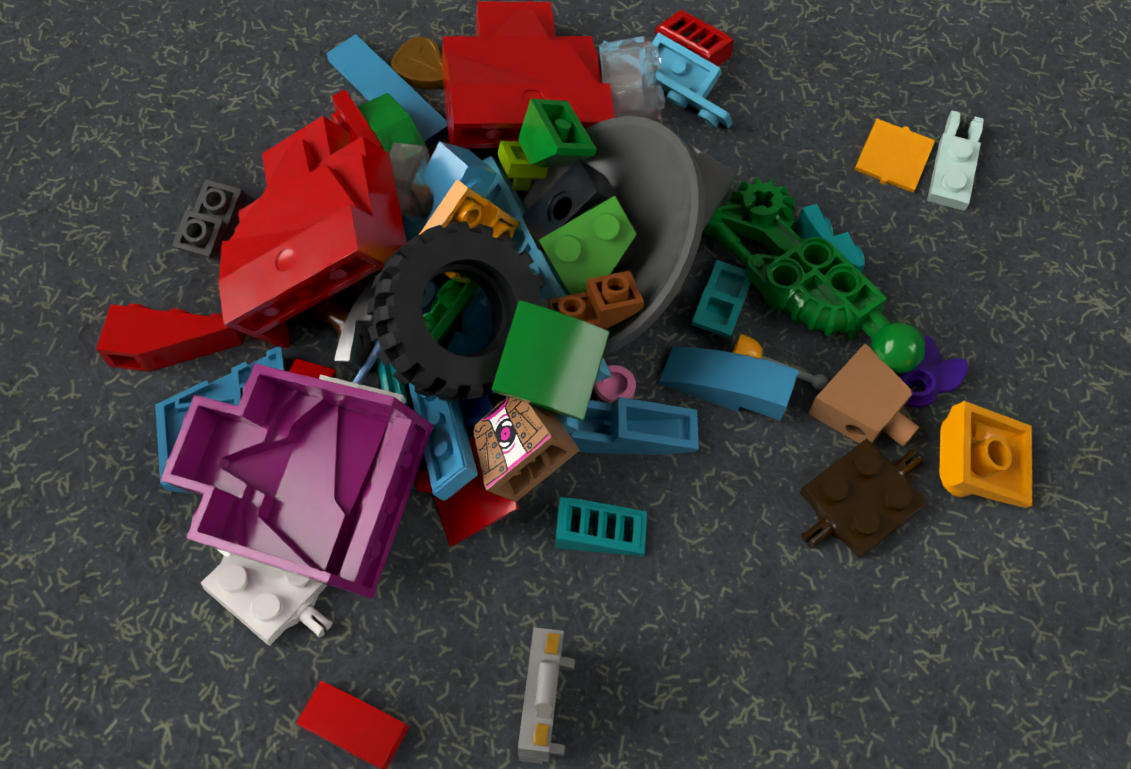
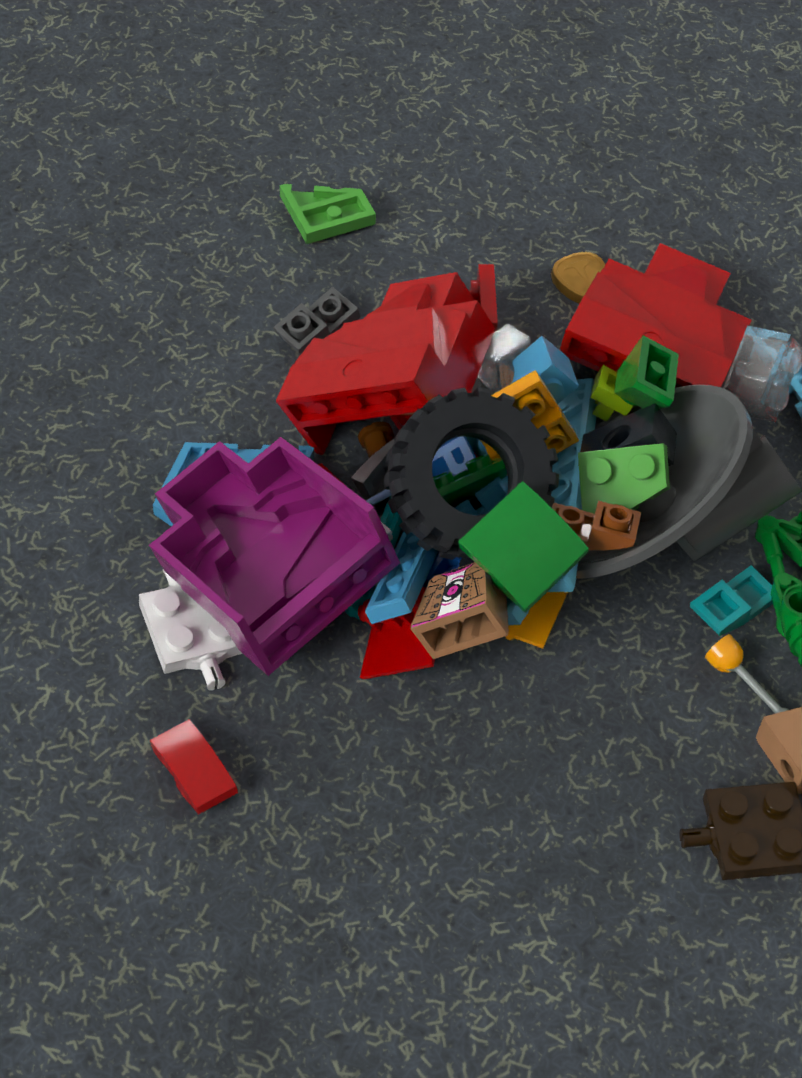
camera: 30 degrees right, 10 degrees down
(155, 339) = (220, 395): red slope -> none
(156, 107) = (327, 211): none -> bright green wing
(375, 77) = (535, 284): dark azure tile -> none
(390, 122) = (517, 308): green slope -> none
(540, 696) = (357, 820): light grey piece -> none
(588, 509) = (506, 716): teal slope -> none
(618, 385) = (586, 624): bright pink tile -> none
(637, 428) = (576, 661): dark azure slope -> none
(730, 379) = (697, 670): dark azure slope -> none

